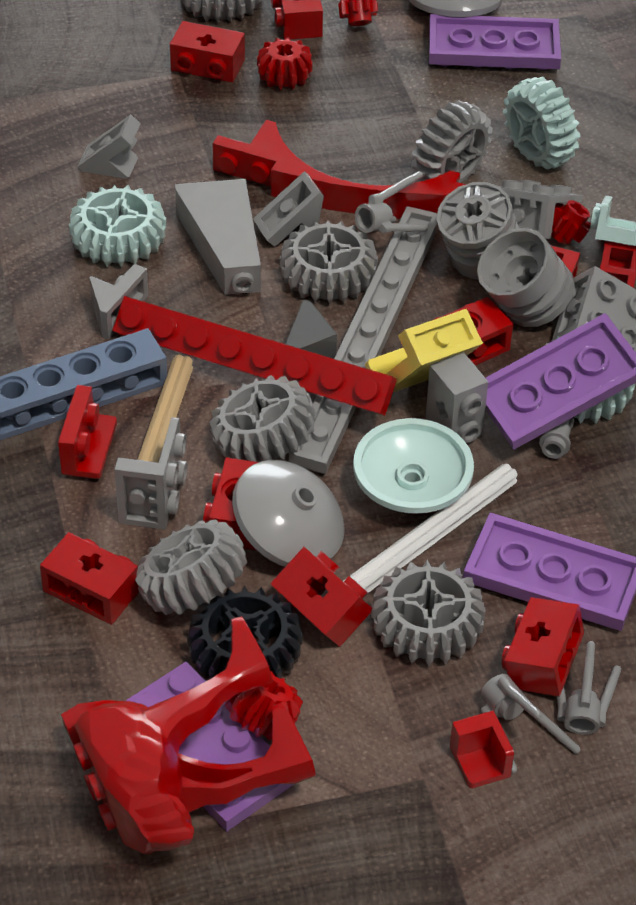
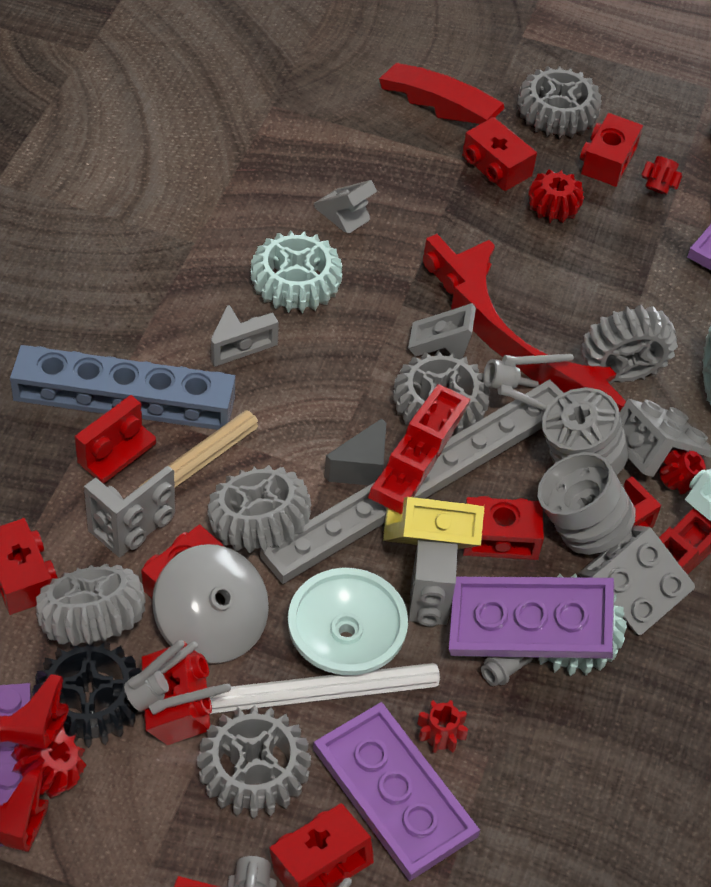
camera: 30 degrees right, 5 degrees up
(122, 23) = (446, 94): none -> red slope
(223, 231) = (378, 321): light grey slope -> none
(258, 355) = (305, 450): red plate -> none
(307, 595) = (149, 686): none -> light grey plant
(357, 305) = (419, 448): none -> red slope
(551, 504) = (445, 715): none -> red gear

